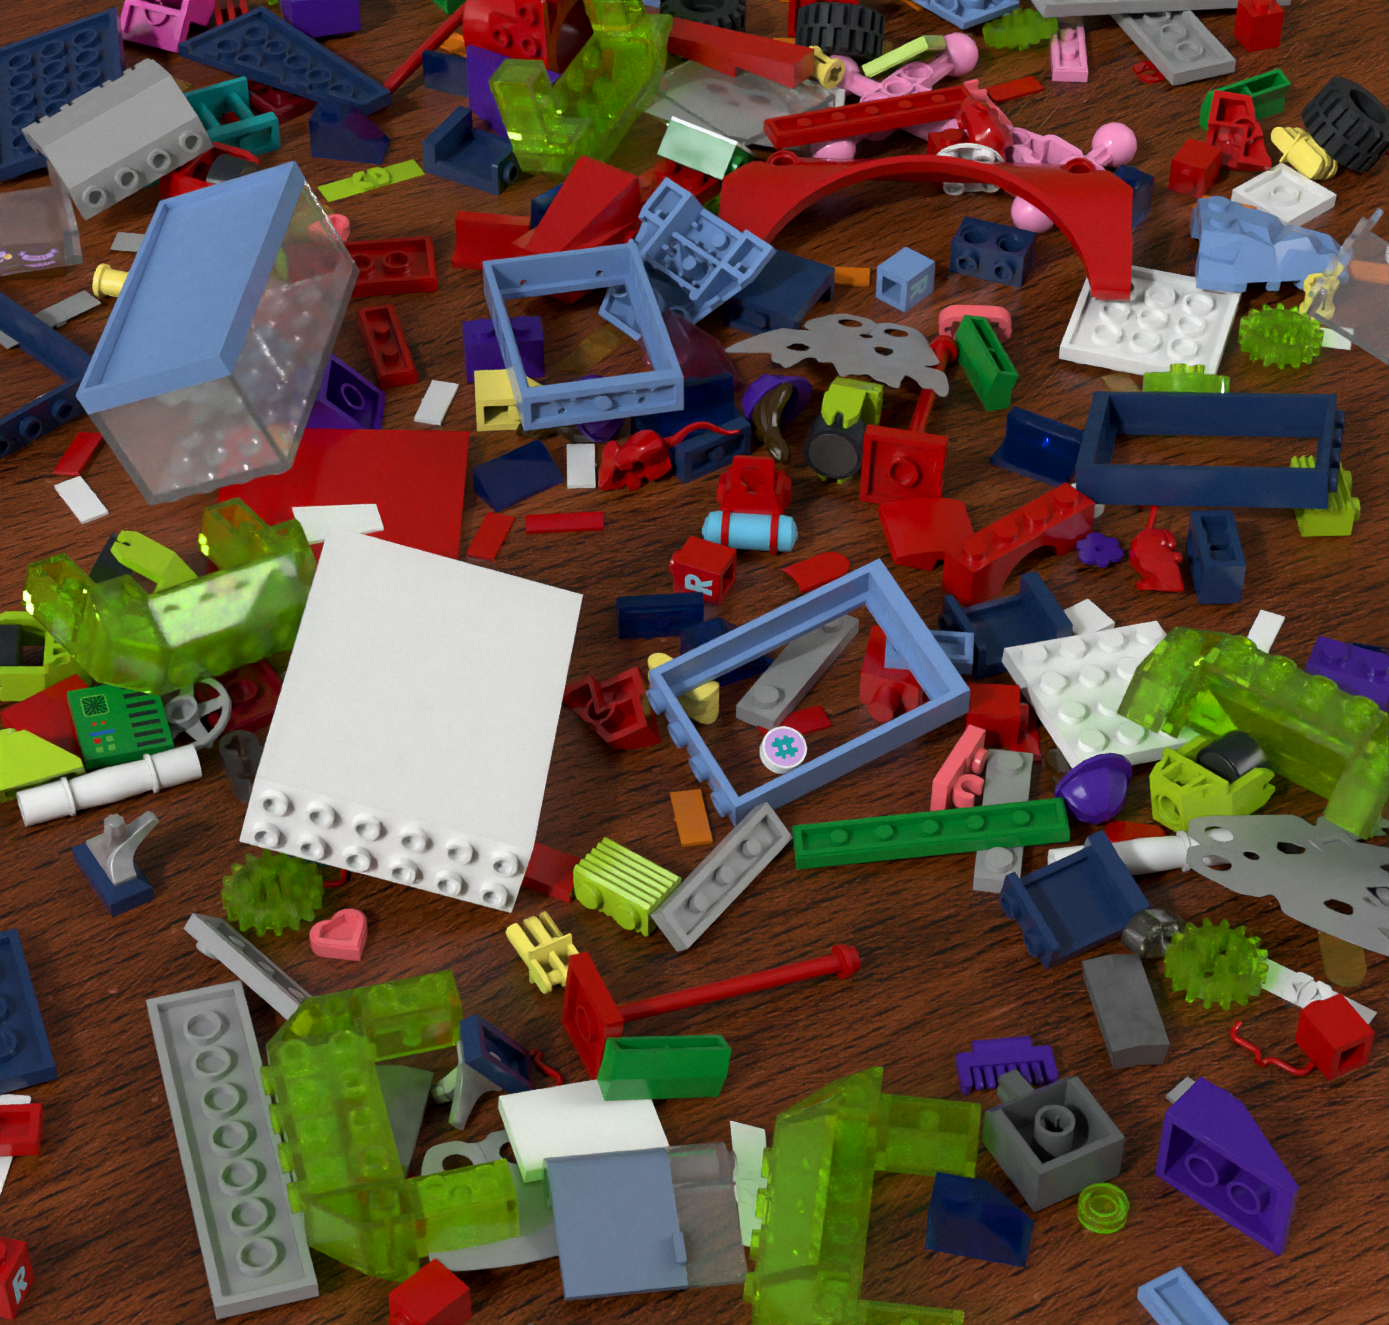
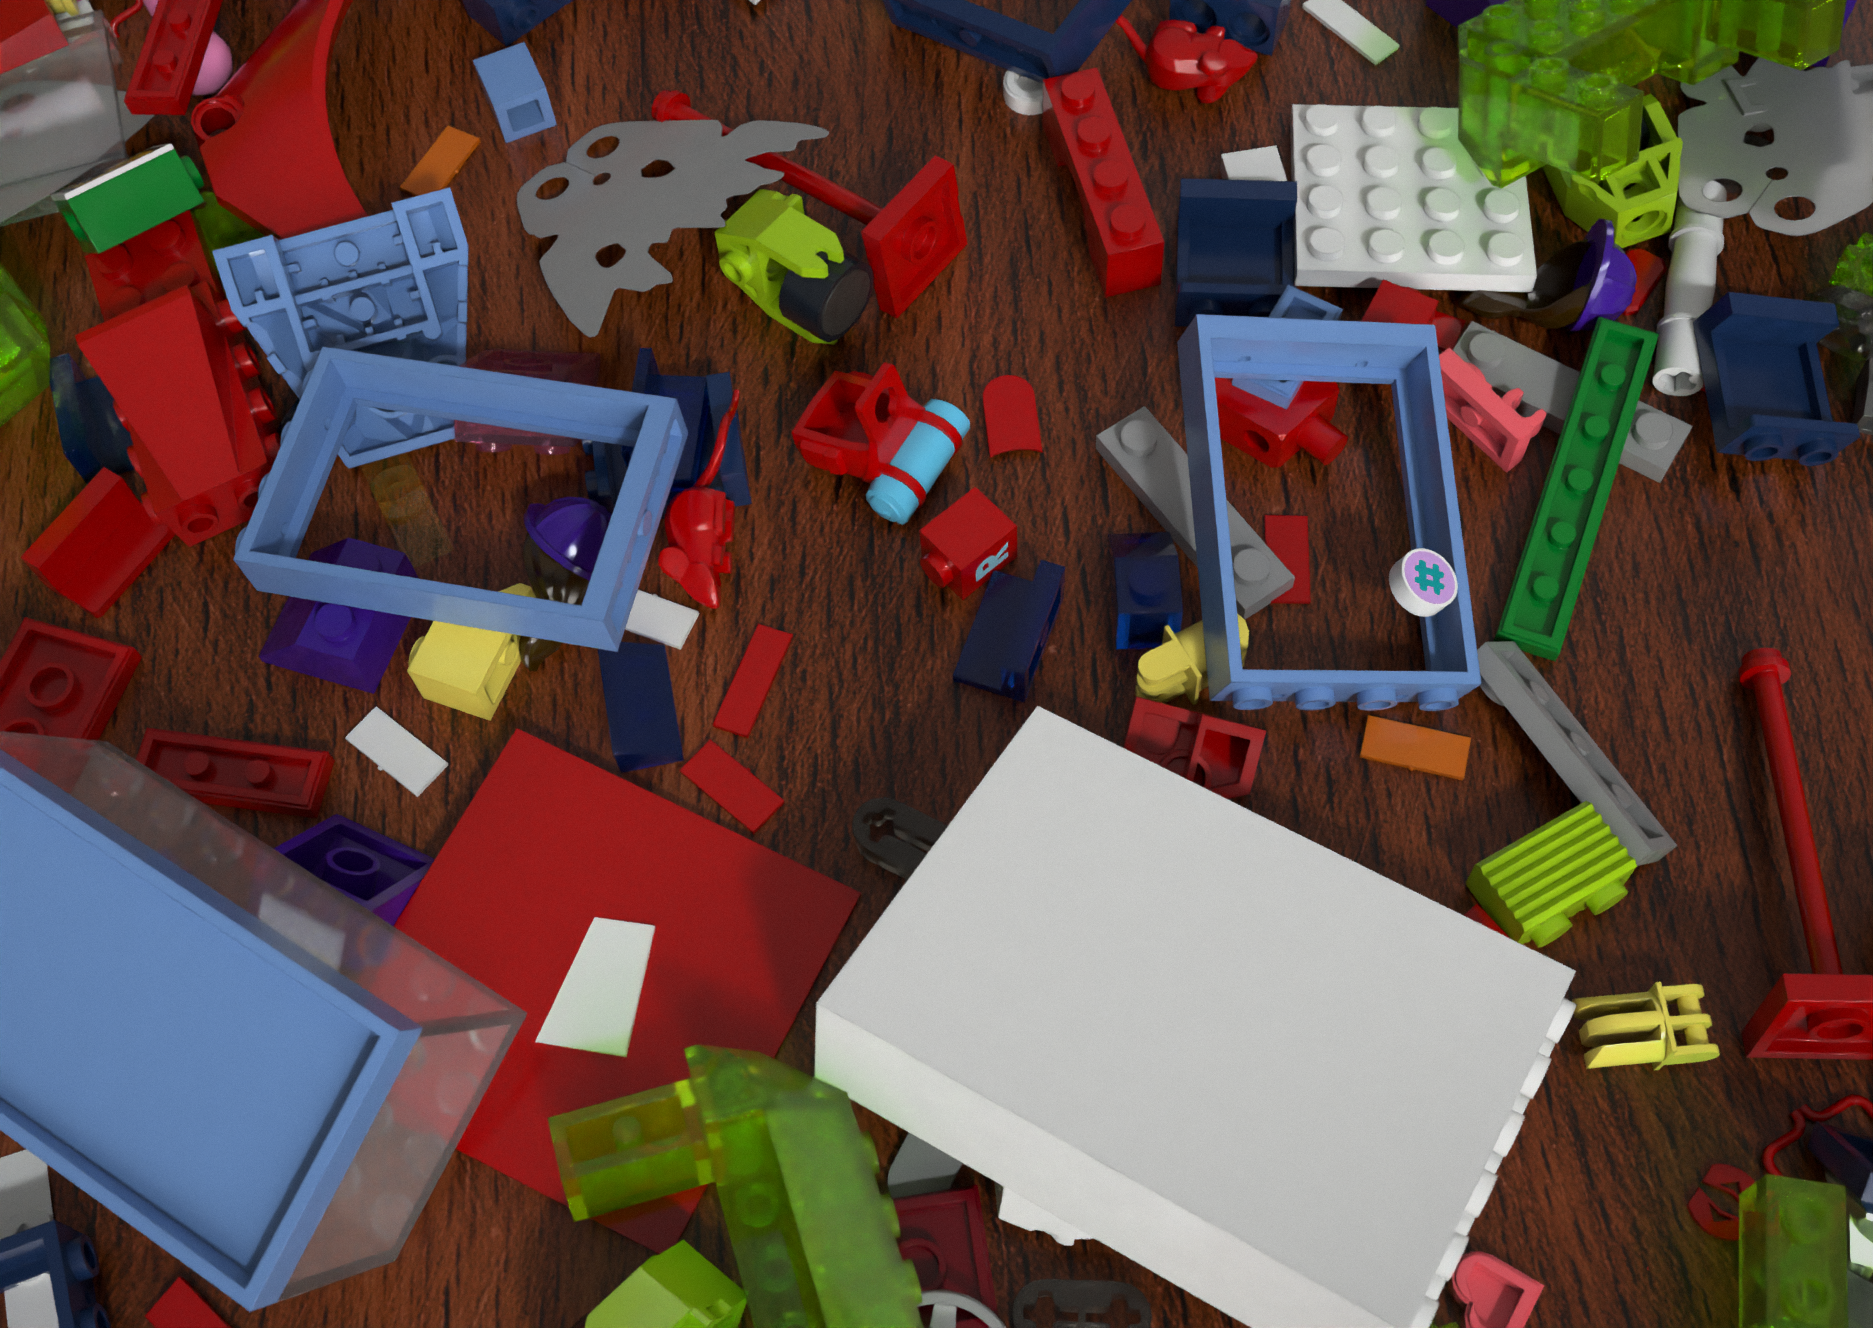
camera: 60 degrees left, 20 degrees up
(771, 405) = (700, 337): piece -> none
(780, 295) = (501, 246): dark blue panel -> none
(923, 529) = (1014, 266): red slope -> none
(985, 362) = (736, 75): green piece -> none
(992, 314) = (649, 58): coral beam -> none
(1038, 448) = (921, 90): clear blue panel -> none
(1099, 550) = (1136, 108): dark purple plant -> none

